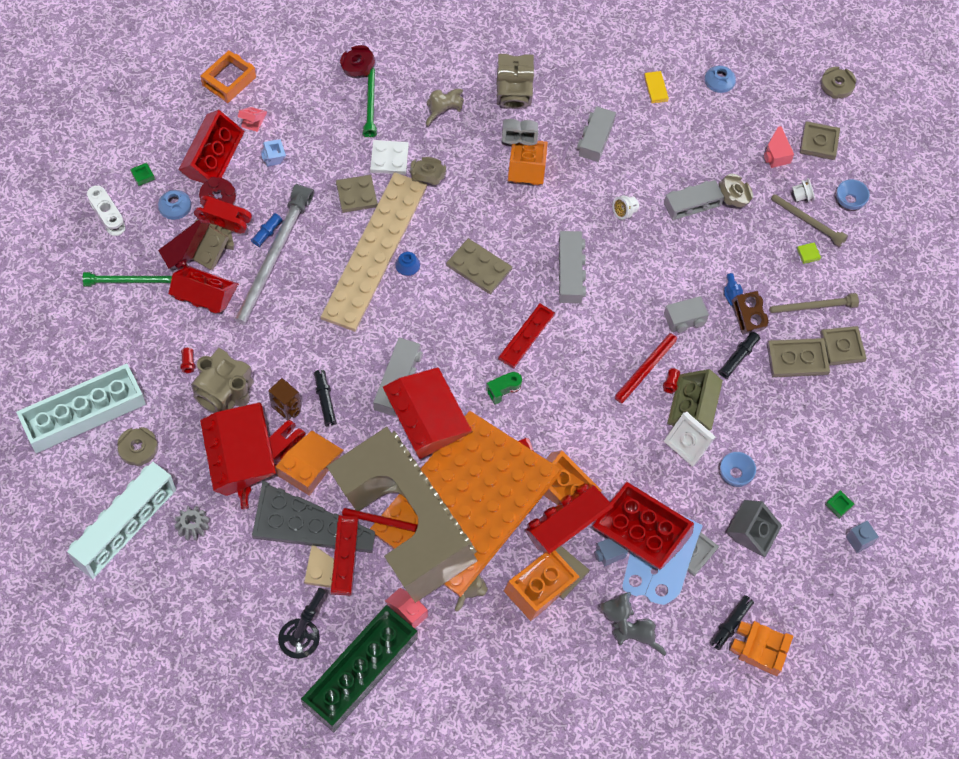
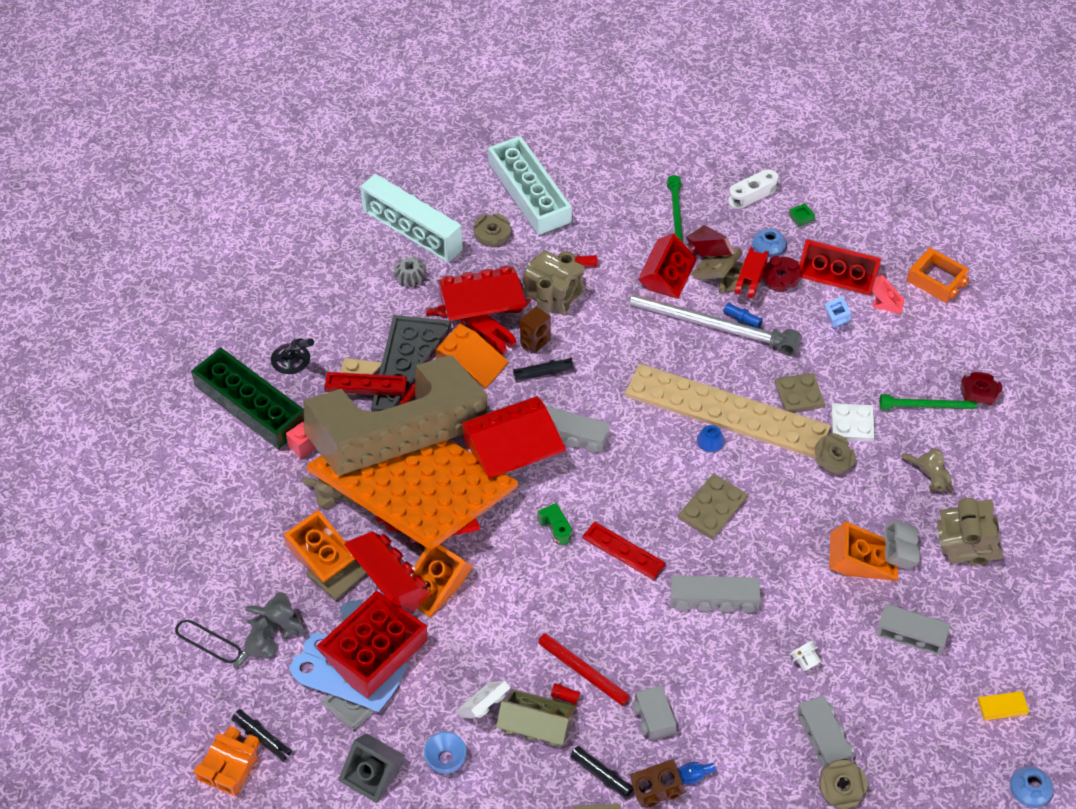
camera: 95 degrees right, 10 degrees down
(645, 687) = (204, 649): none -> black piece

